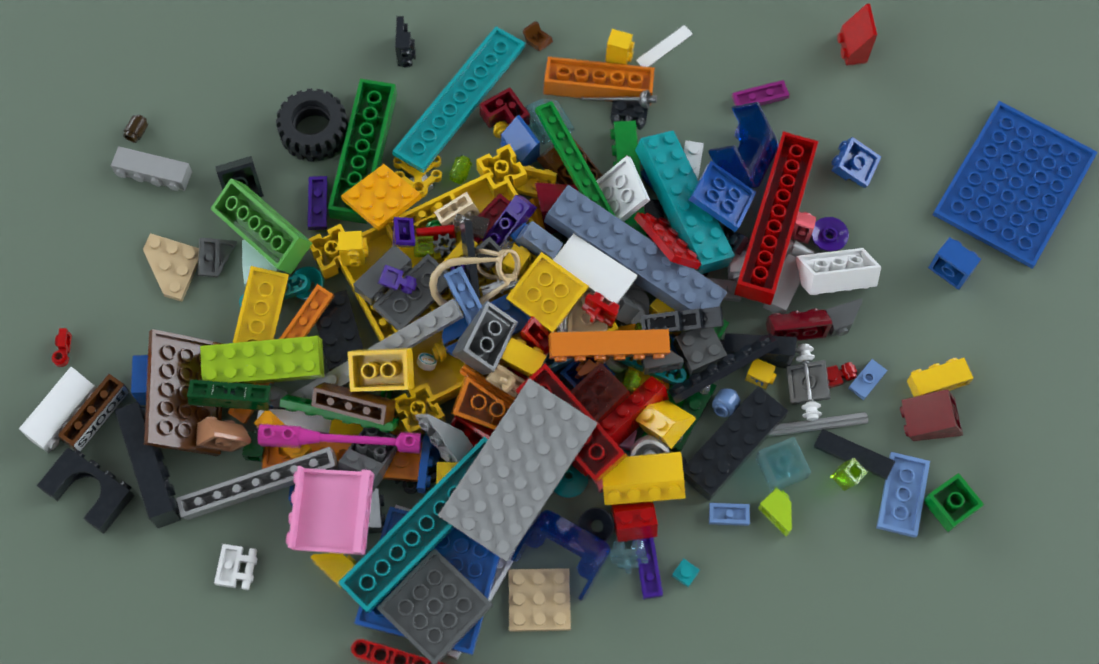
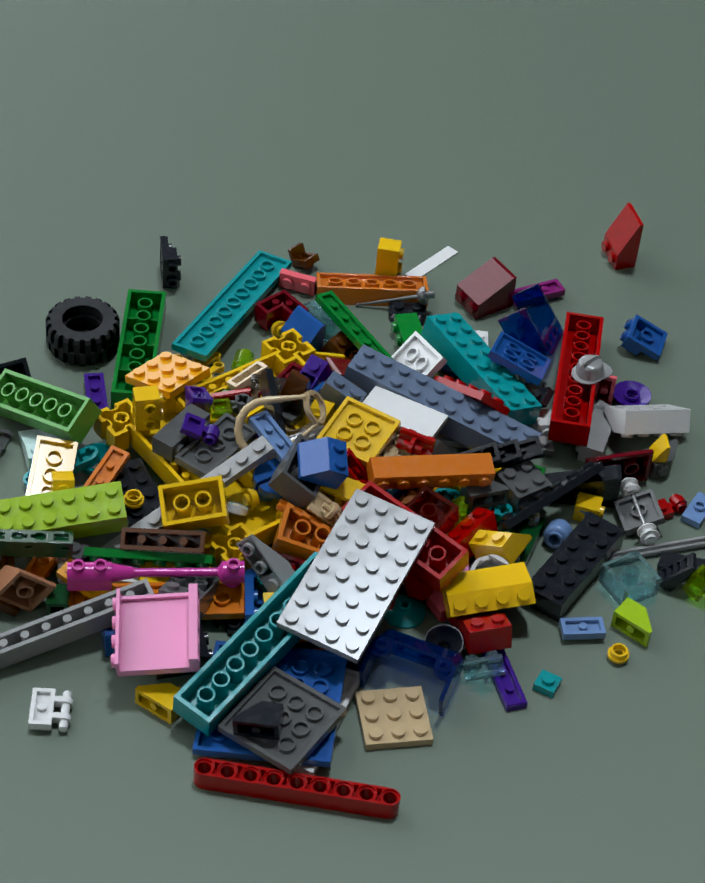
camera: 10 degrees left, 25 degrees down
(268, 326) = (62, 480): none -> yellow brick
(332, 340) = (133, 499): none -> yellow plate
(414, 613) = (260, 721): none -> black slope
(494, 236) = (296, 385): none -> reddish brown slope
(504, 336) = (323, 461): none -> blue slope
(527, 69) = (297, 282): none -> coral plate
(709, 93) = (487, 289): none -> slope
(757, 539) = (618, 653): none -> yellow plate
(790, 218) = (591, 370): none -> light grey piece
(826, 460) = (677, 572): none -> black slope
(840, 315) = (661, 449): none -> yellow slope

